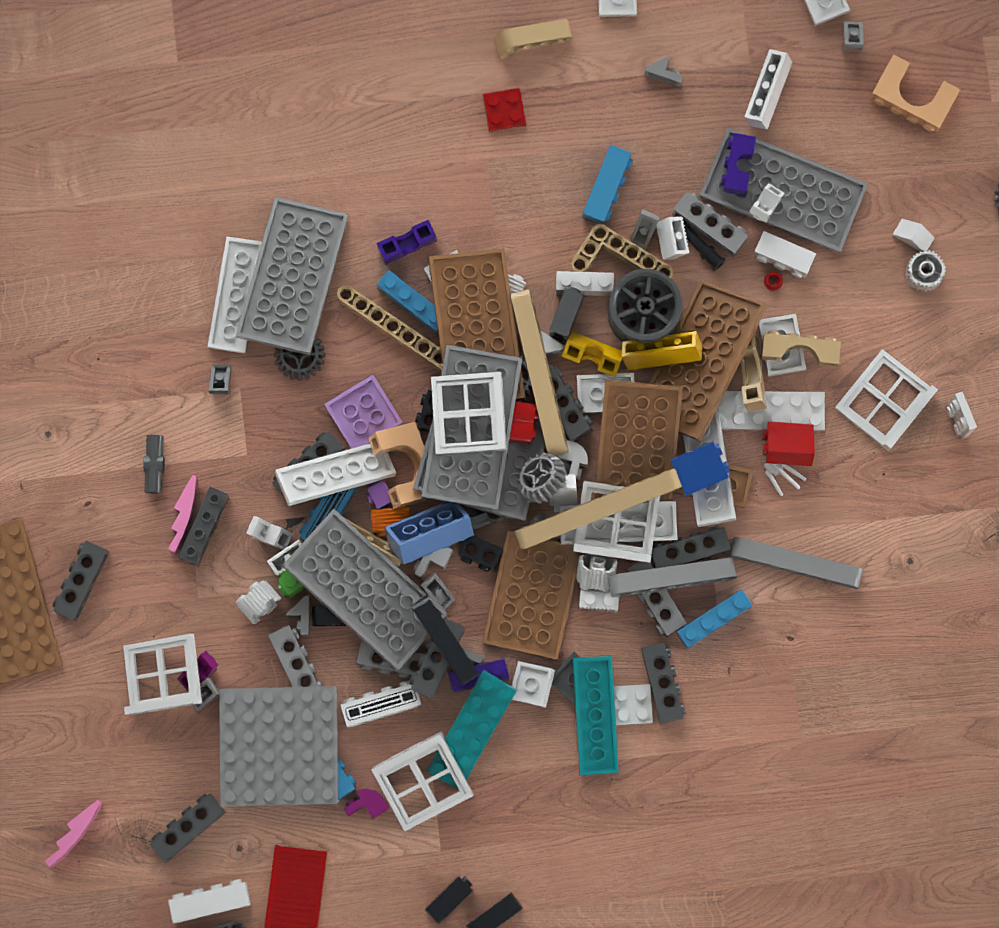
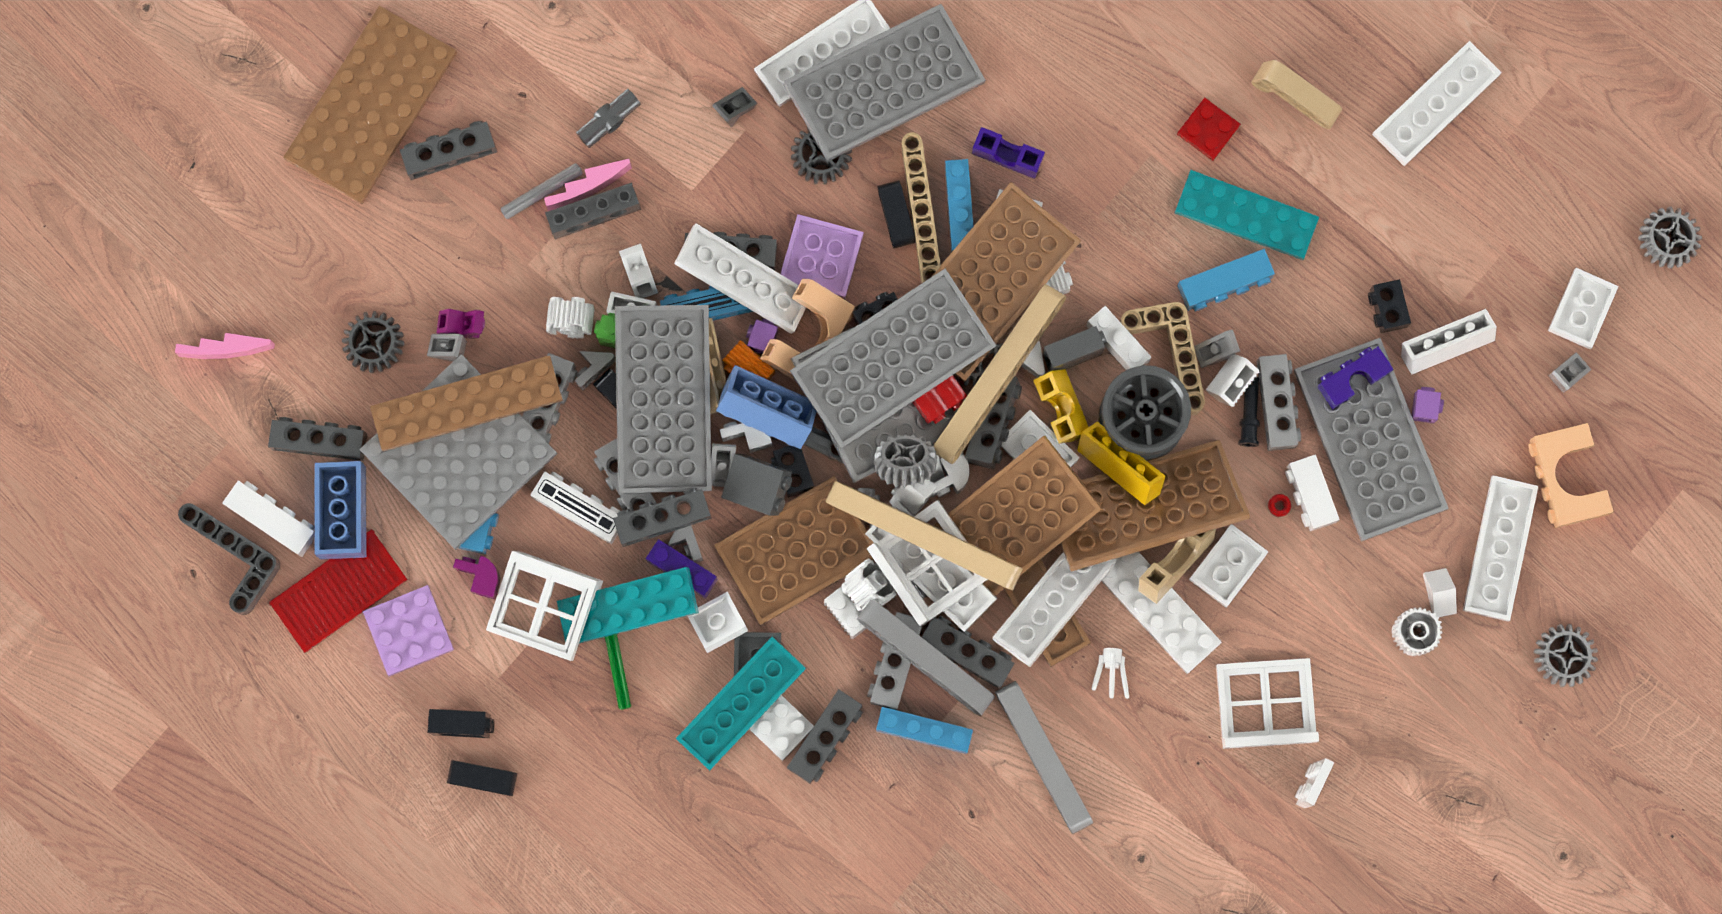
camera: 45 degrees right, 0 degrees up
(157, 746) = (384, 358): none -> dark grey gear
(160, 547) = (541, 191): none -> light grey axle
(165, 701) = (409, 318): white window -> none
(246, 853) = (340, 510): none -> medium blue brick
(254, 713) = (466, 403): none -> medium nougat plate
(359, 879) = (408, 630): none -> lavender plate
(380, 344) = (896, 214): none -> black beam
(444, 640) = (681, 508): black beam -> none
(470, 582) = (757, 484): none -> dark grey brick
(496, 411) = (925, 366): white window -> none
(505, 773) = (618, 672): none -> green axle
(578, 136) = (1246, 215): none -> teal plate
(658, 72) = (1372, 231): light grey slope -> none
(700, 467) = (1045, 592): blue brick -> none
(716, 100) = (1395, 305): none -> black brick
(766, 203) = (1342, 434): white brick -> none
(789, 443) = (1143, 652): red brick -> none
(794, 138) = (1427, 405): none -> medium lavender brick
(825, 351) = (1222, 561): tan arch -> none
(920, 175) = (1500, 548): none -> white plate

